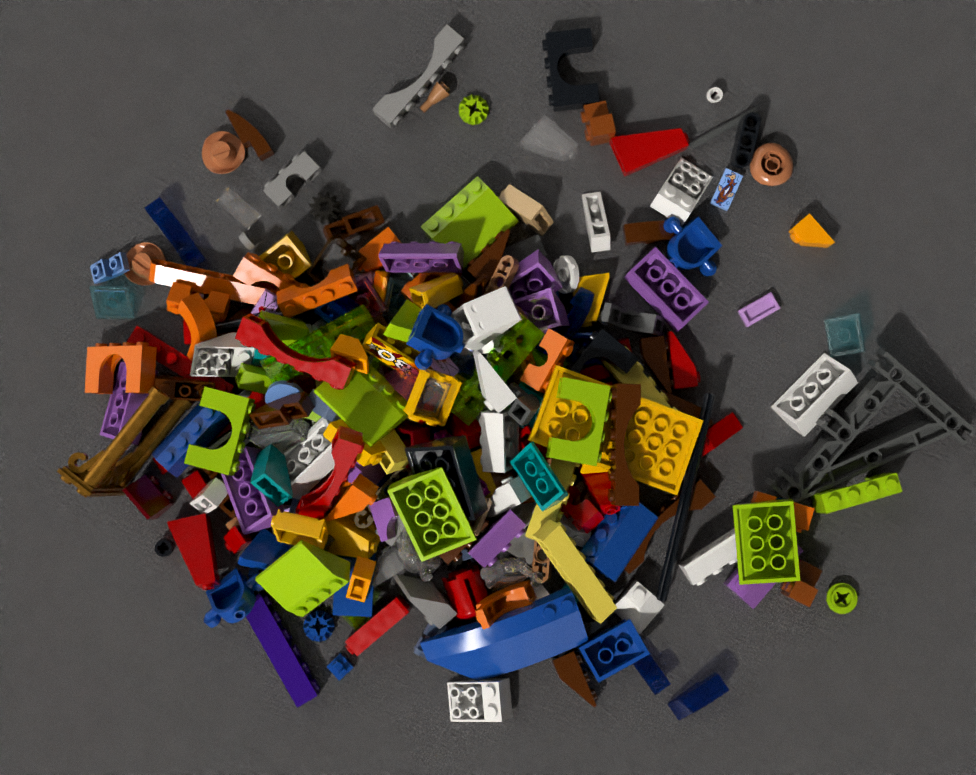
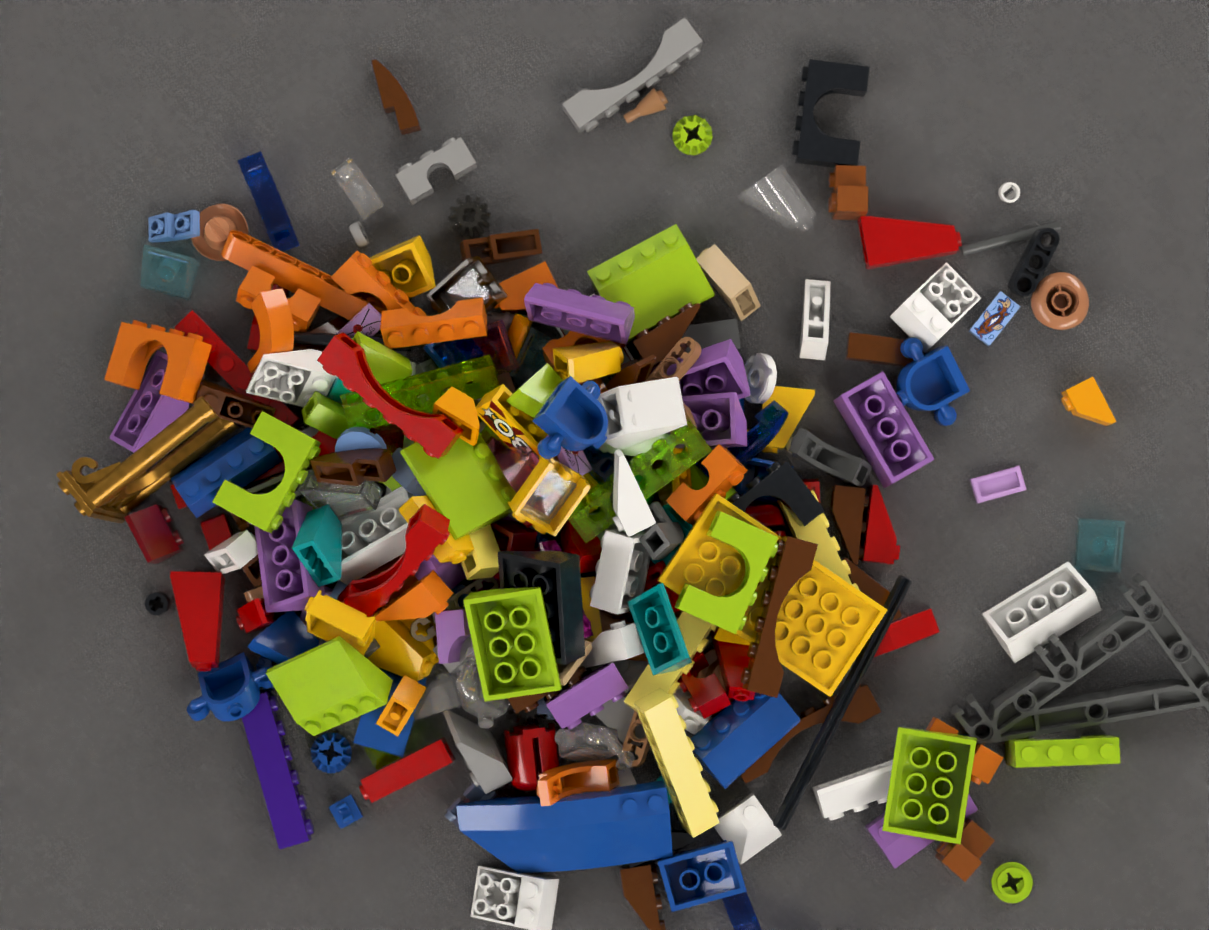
camera: 10 degrees right, 0 degrees up
(222, 152) = (355, 112): nougat hat -> none

